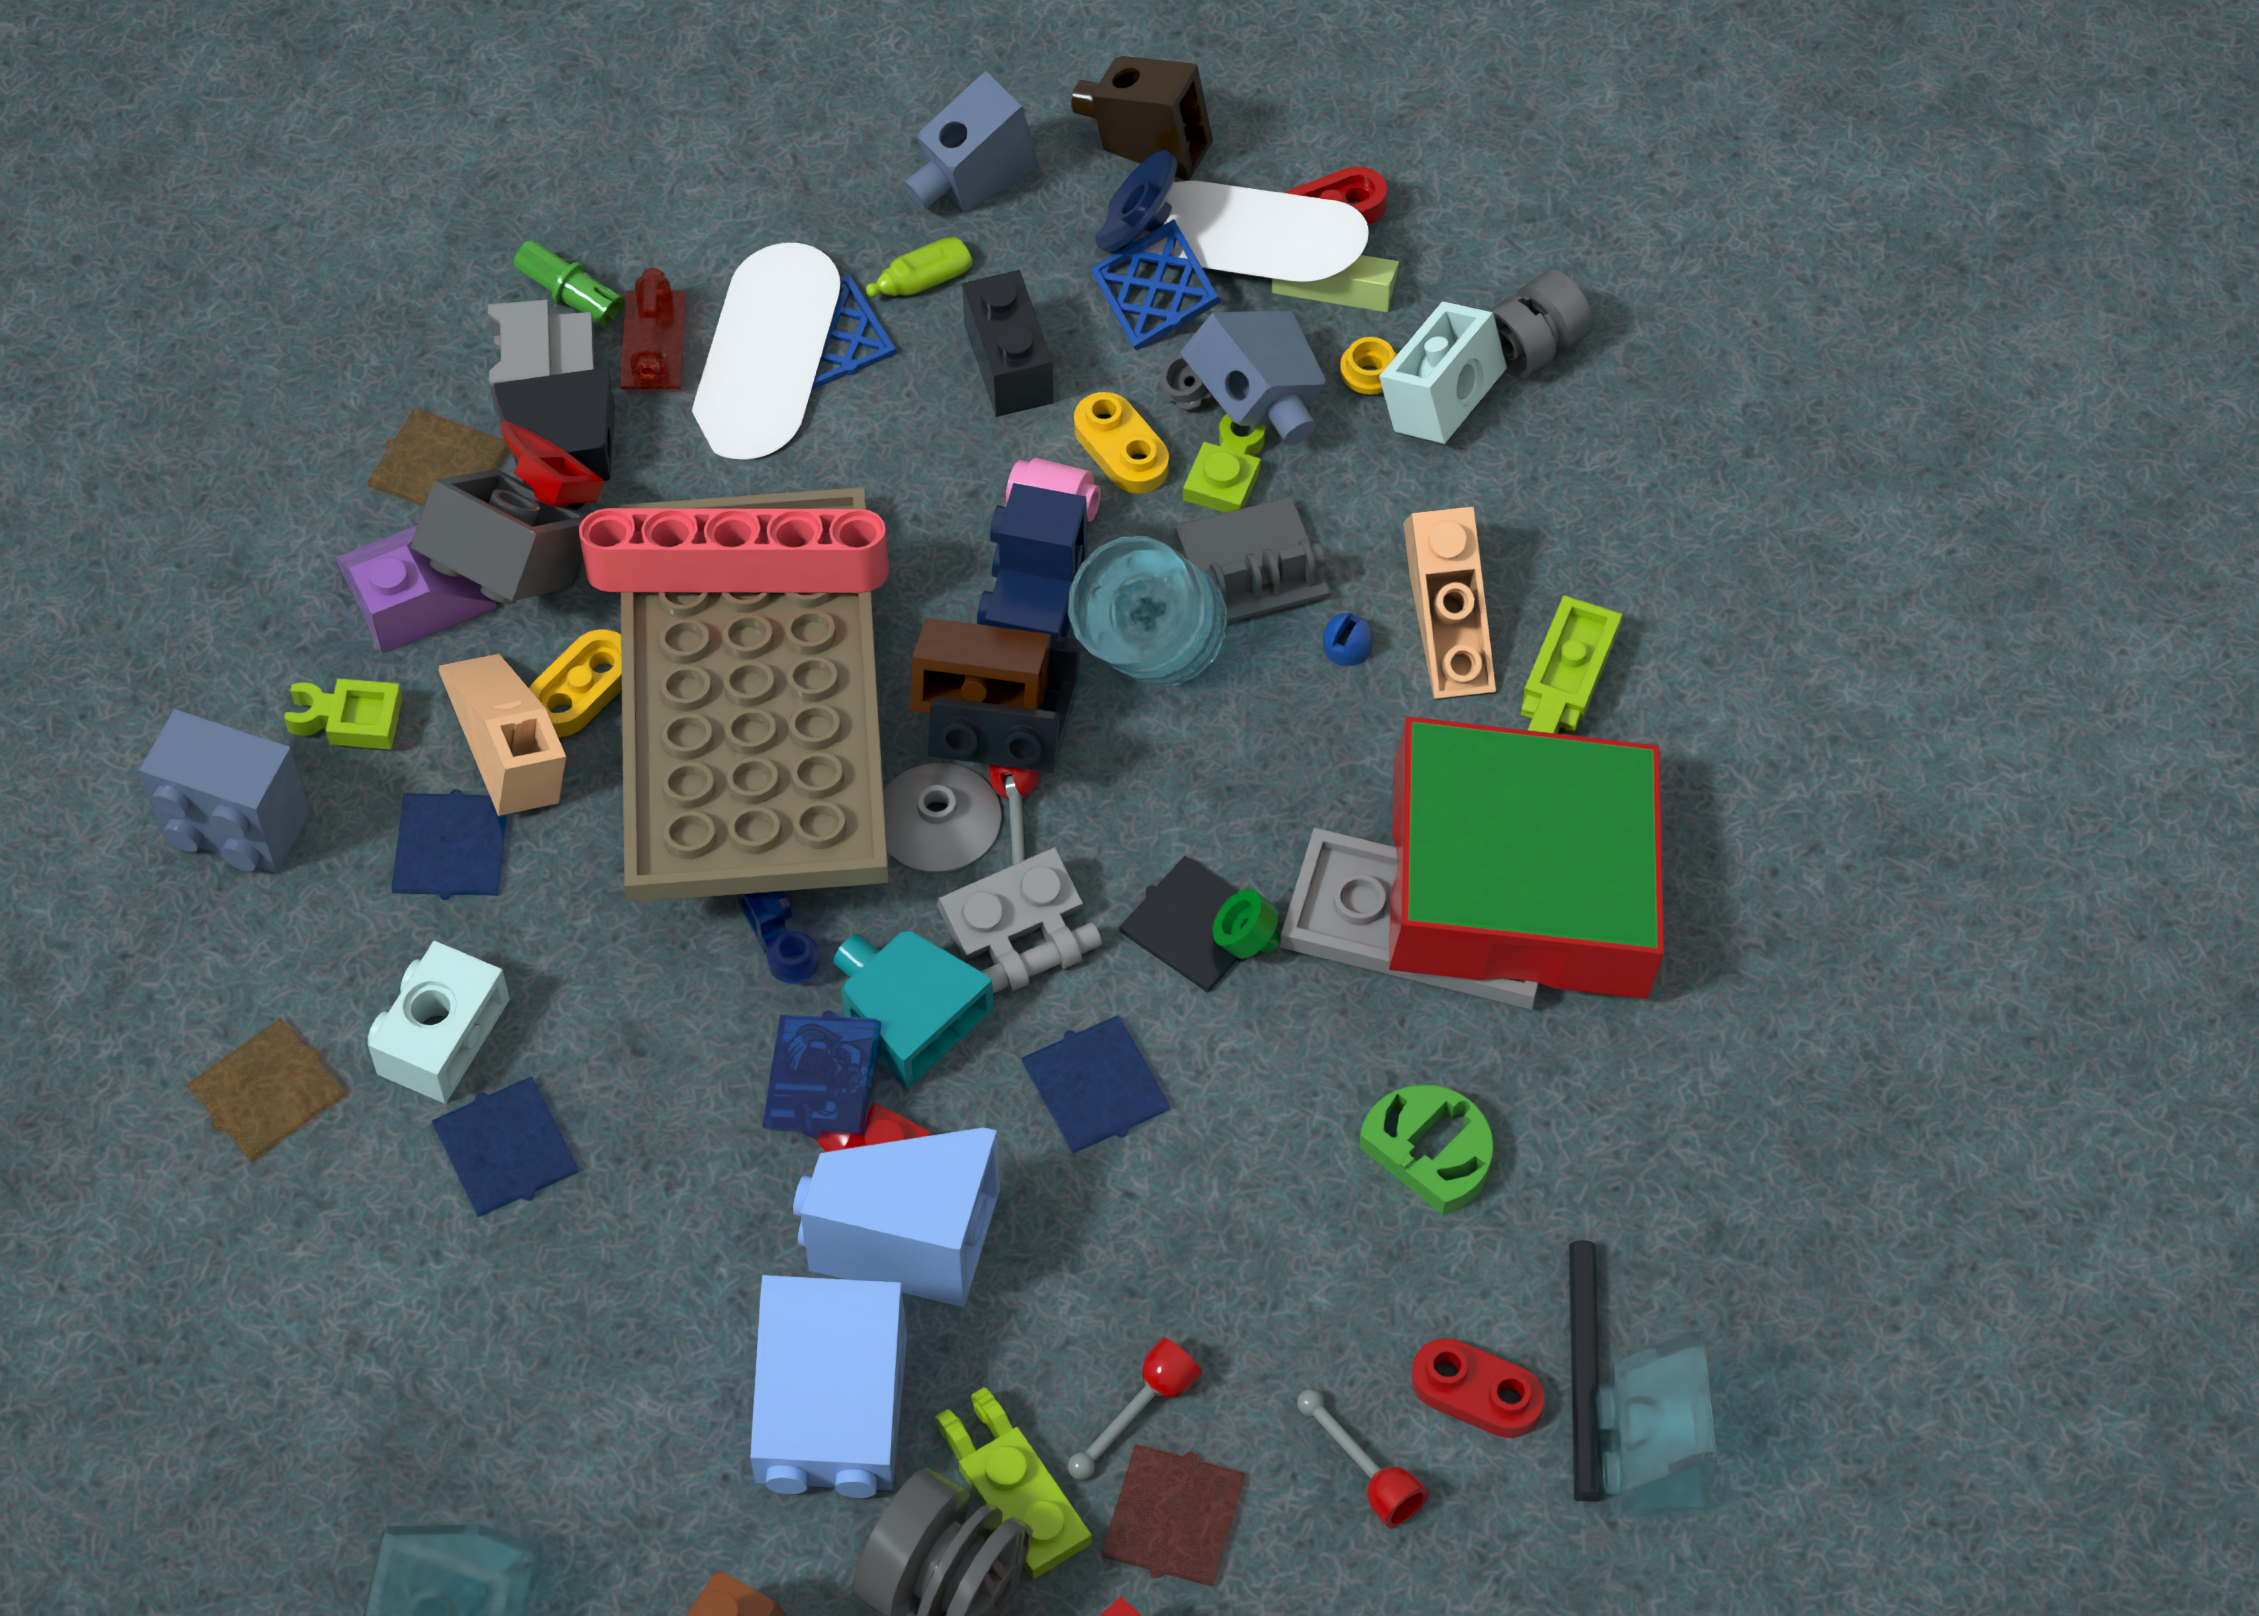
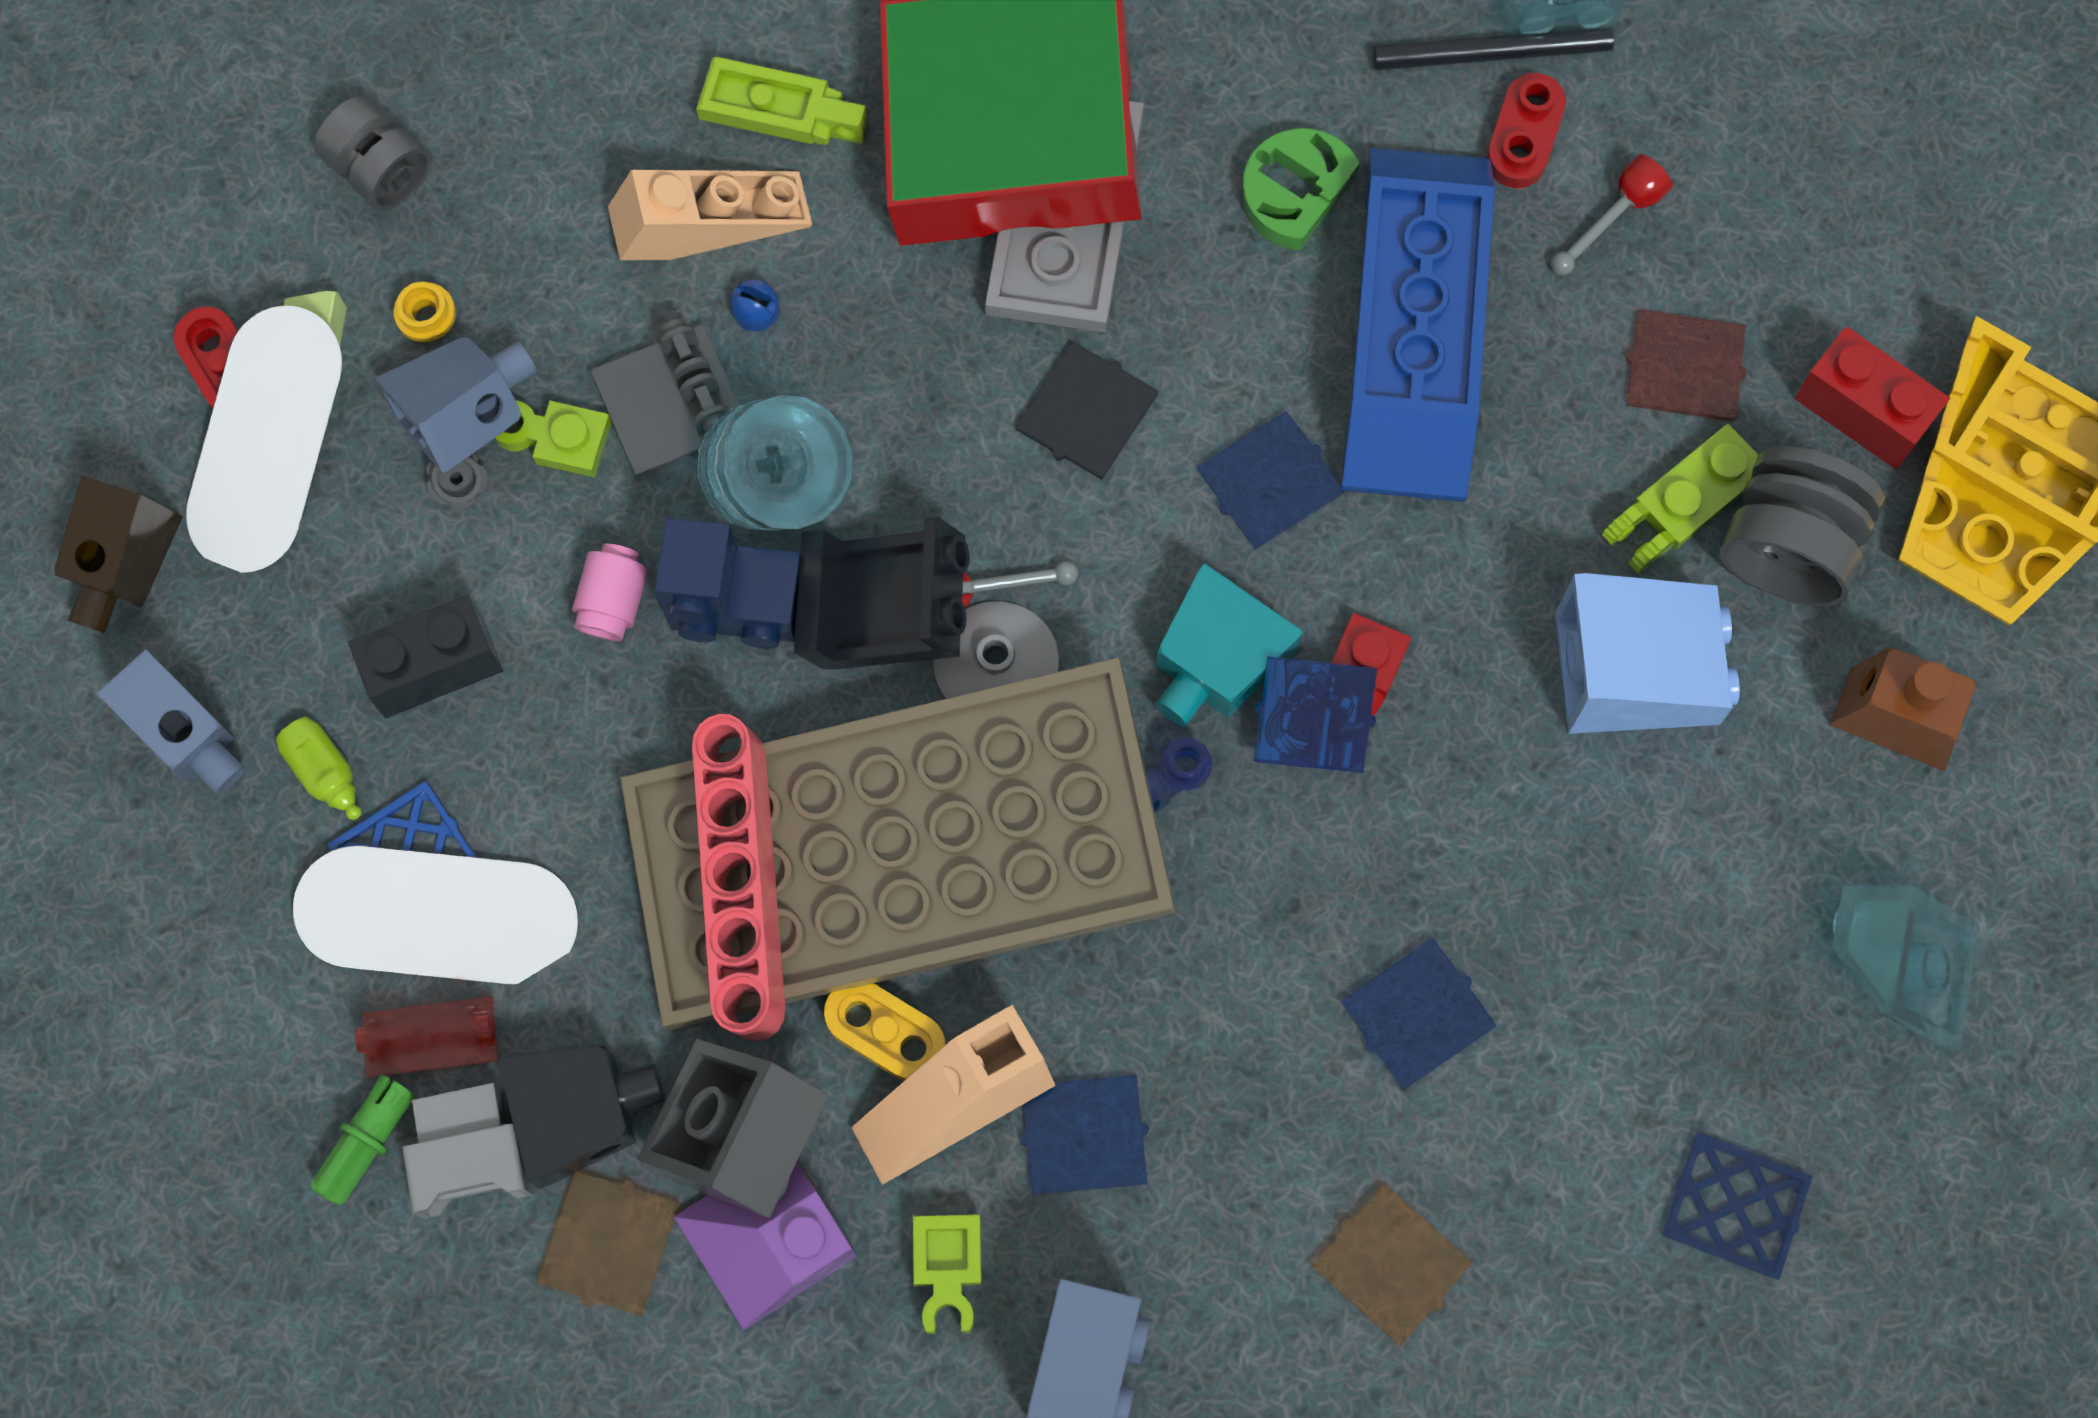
camera: 95 degrees left, 15 degrees up
(206, 1389) = (1787, 1225): none -> clear blue window
(437, 1055) = (1344, 1087): light aqua brick -> none
(550, 470) = (649, 1088): red plate -> none
(903, 1212) = (1465, 603): light blue slope -> none
(979, 665) = (865, 611): reddish brown brick -> none
(1011, 905) = (1101, 571): light grey plate -> none
(1118, 438) = (536, 542): yellow plate -> none
(1136, 251) = (289, 549): blue window -> none
(1139, 202) = (234, 545): dark blue dish -> none
(1166, 1374) = (1564, 380): hinge -> none
(1247, 925) = (1101, 352): green tile -> none
(1259, 1221) = (1420, 325): none -> blue slope
(1443, 372) = (443, 229): light aqua brick -> none

